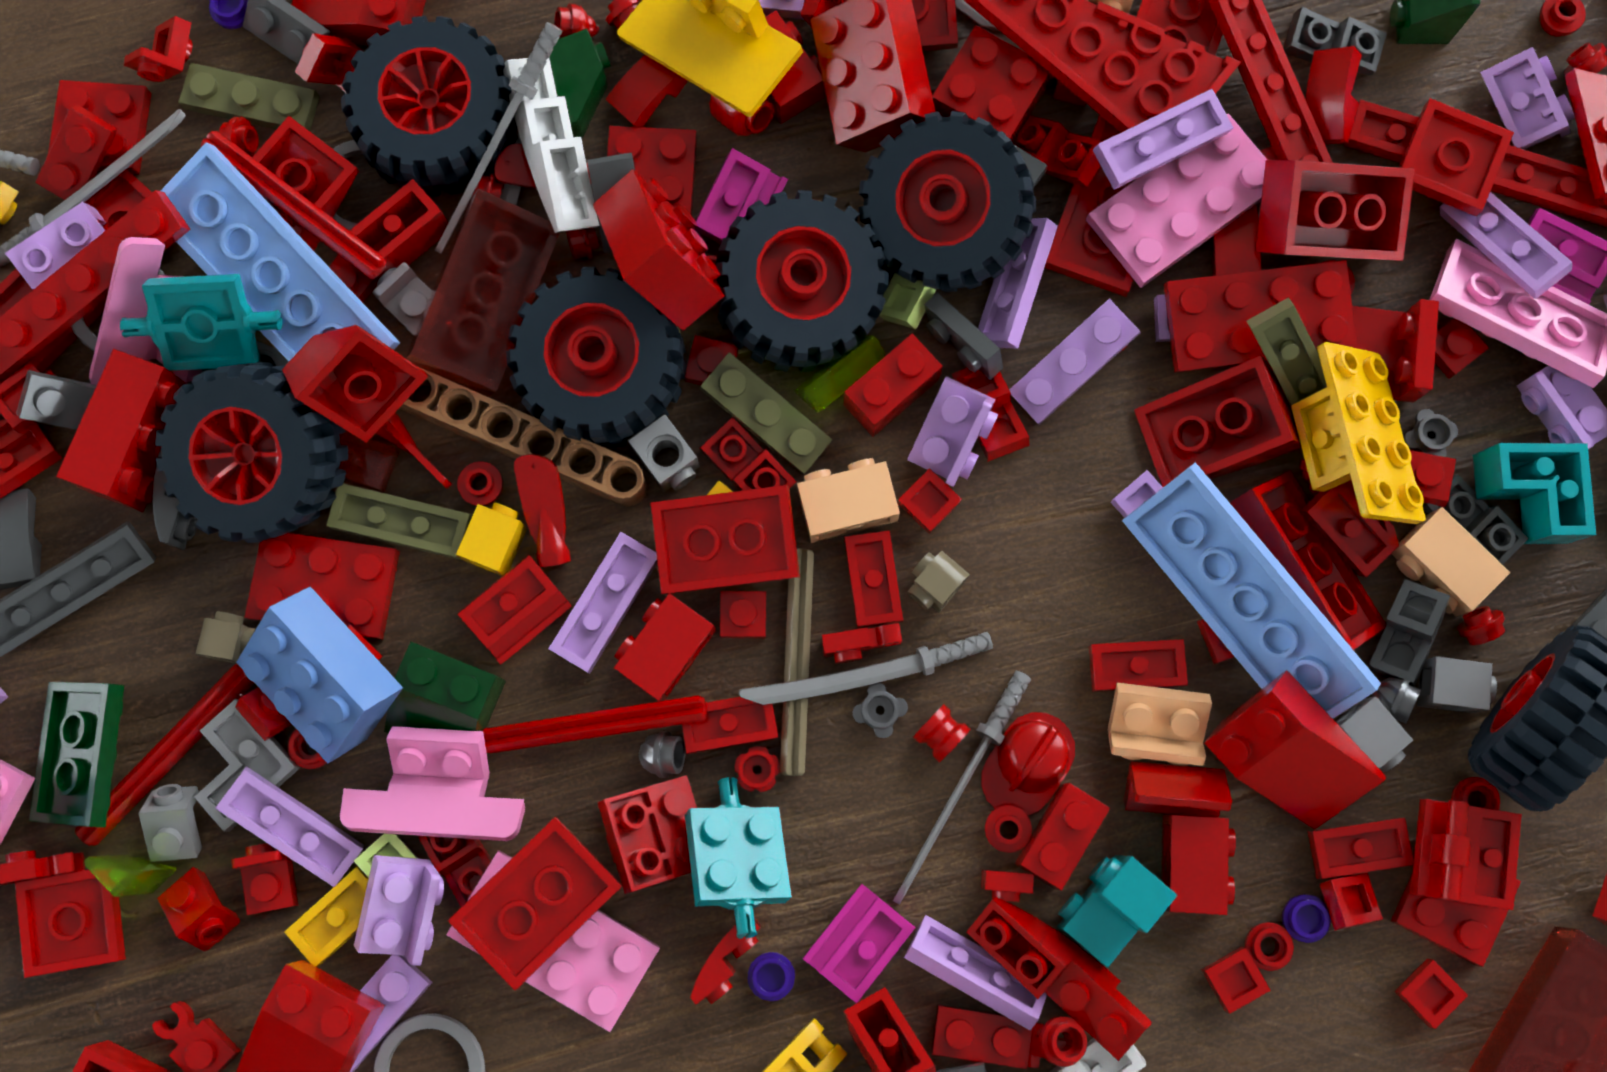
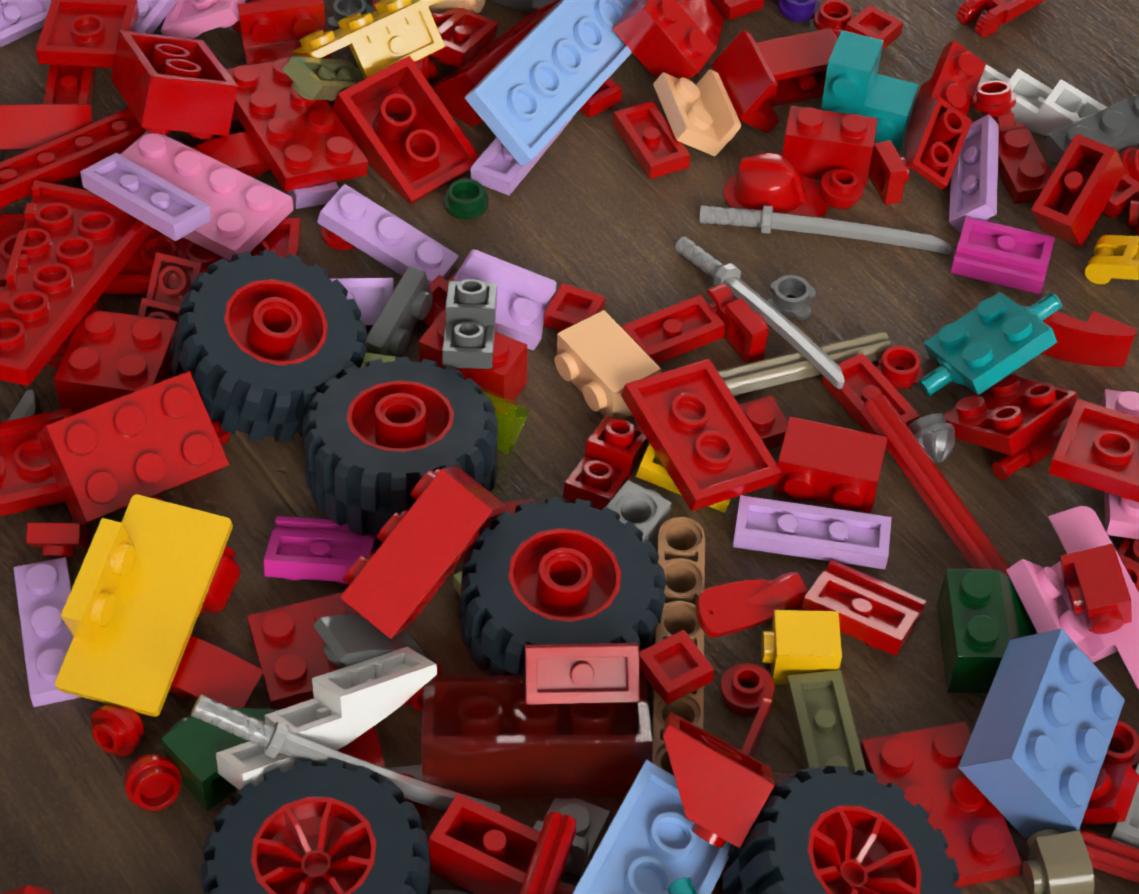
camera: 115 degrees left, 30 degrees down
(423, 791) = (1097, 588): none -> red brick
(483, 409) = (675, 667): none -> red plate
(490, 325) = (582, 673): none -> plate
(765, 414) = (548, 454): olive plate -> none
(771, 976) = (1076, 302): dark purple plate -> none
(899, 373) = (470, 324): none -> dark grey slope
(936, 581) = (650, 282): dark tan plate -> none
(941, 733) = (787, 245): red wheel -> none
(1113, 457) = (466, 199): none -> dark green plate

